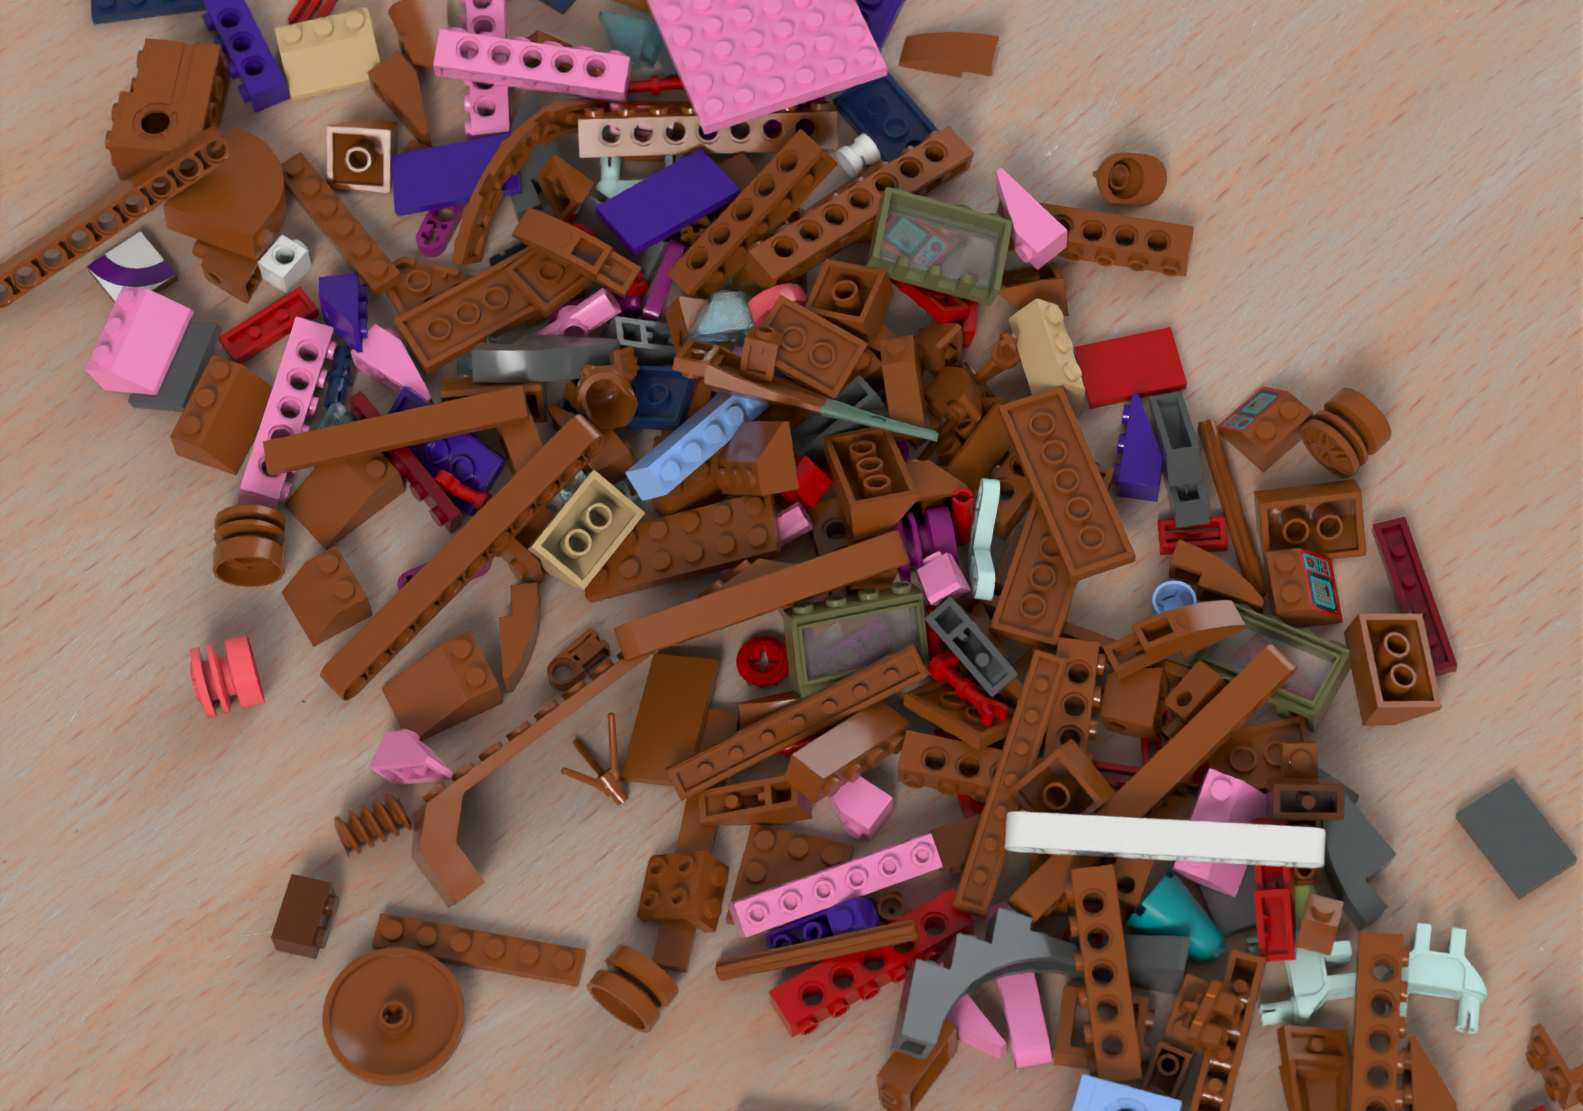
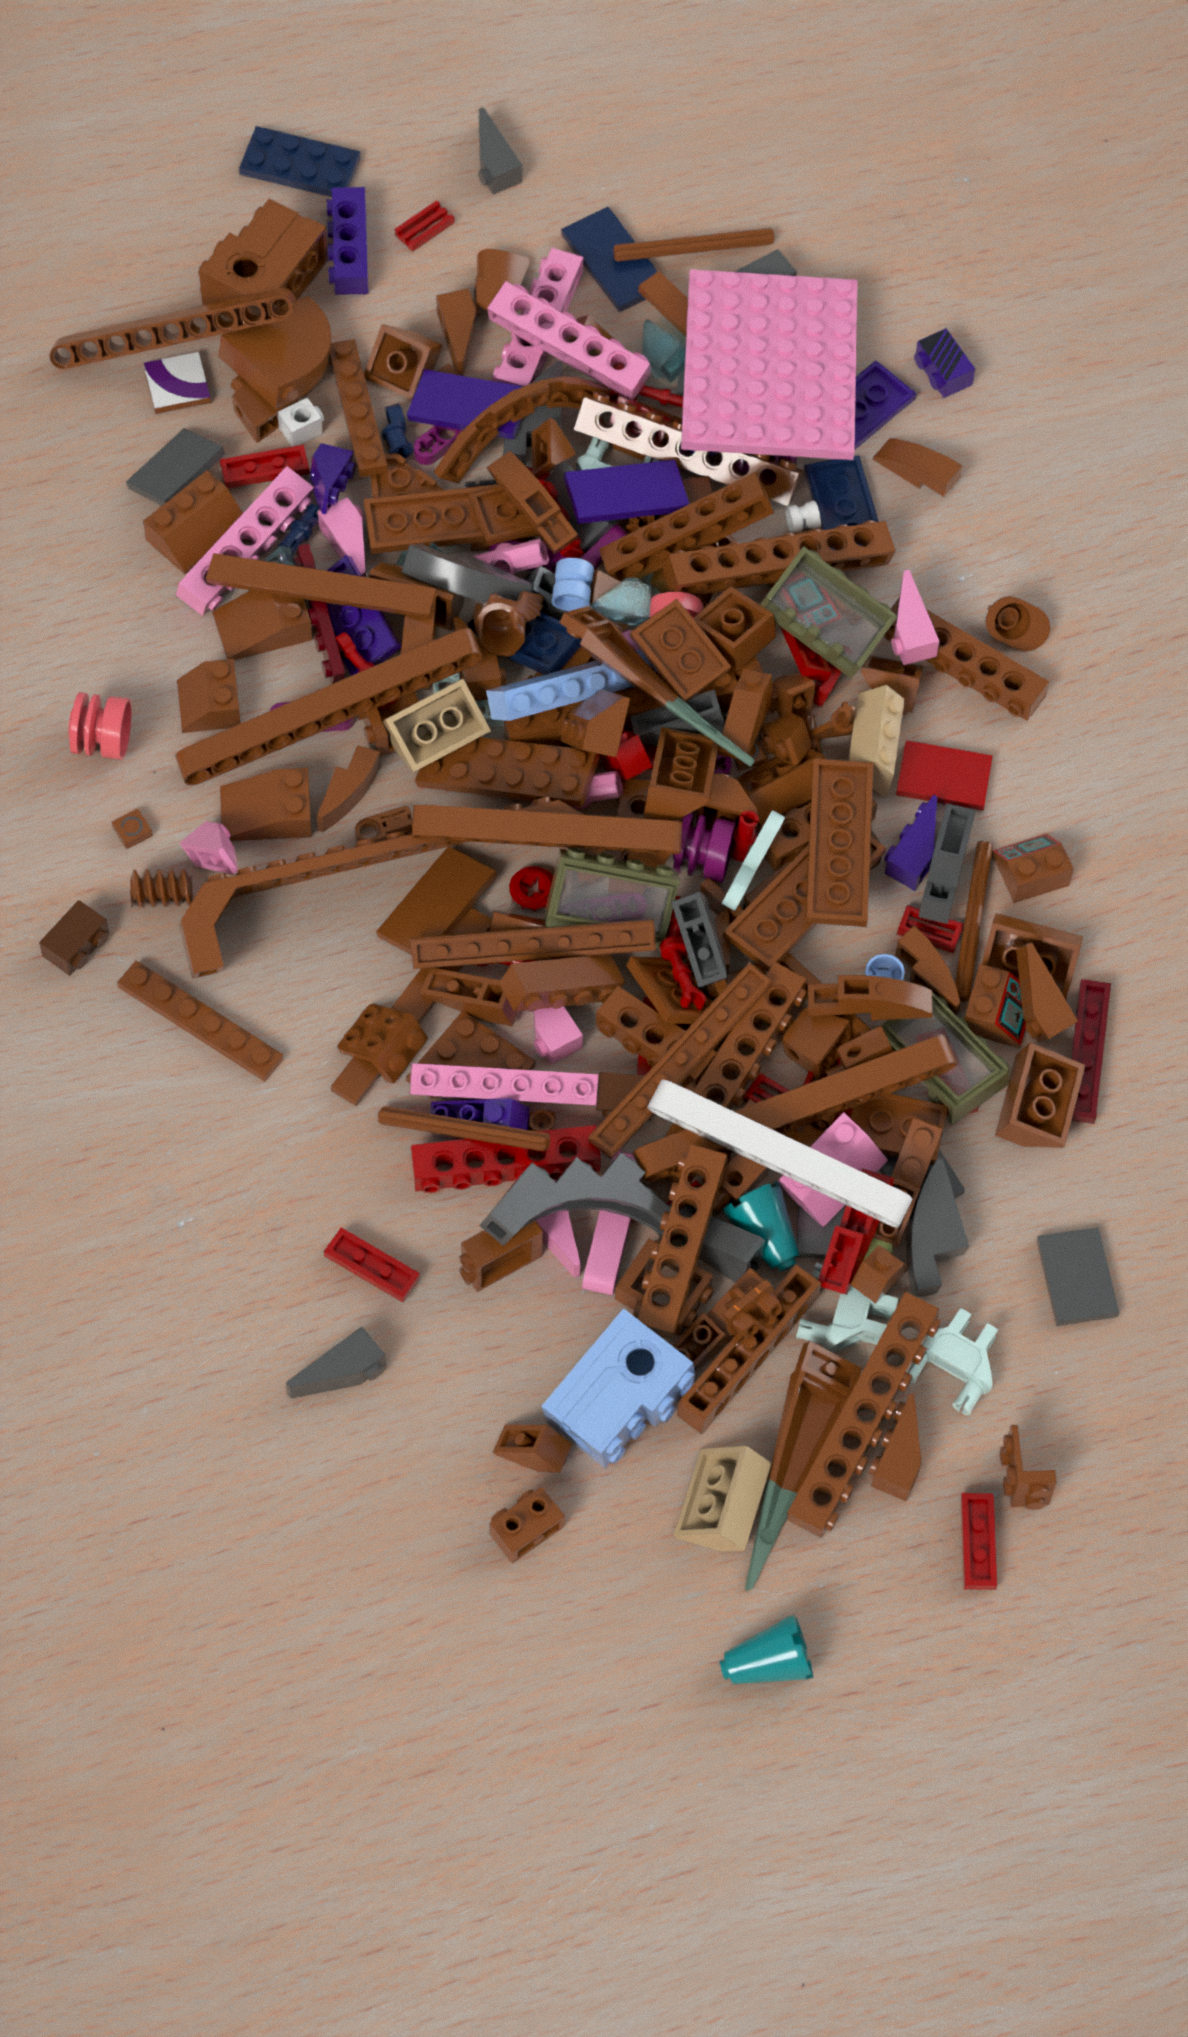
camera: 15 degrees right, 0 degrees up
(138, 342) = (154, 437): bright pink slope -> none
(249, 545) = (165, 631): dark orange wheel -> none
(309, 772) = (132, 828): none -> dark orange tile
(328, 53) = (413, 268): tan slope -> none
(390, 233) = (395, 432): none -> dark blue connector
(394, 1016) = (107, 1043): dark orange dish -> none
(608, 780) = (363, 930): dark orange plant -> none
(632, 988) = (303, 1098): dark orange wheel -> none
(658, 322) = (572, 584): none -> light blue wheel
(760, 353) = (637, 638): dark orange bracket -> none
(942, 578) = (702, 875): bright pink slope -> none
(1063, 784) = (721, 1077): dark orange slope -> none
(1305, 799) = (910, 1168): reddish brown brick -> none
(1345, 432) = (1093, 895): dark orange wheel -> none
(1345, 563) = (1041, 999): none -> dark orange slope

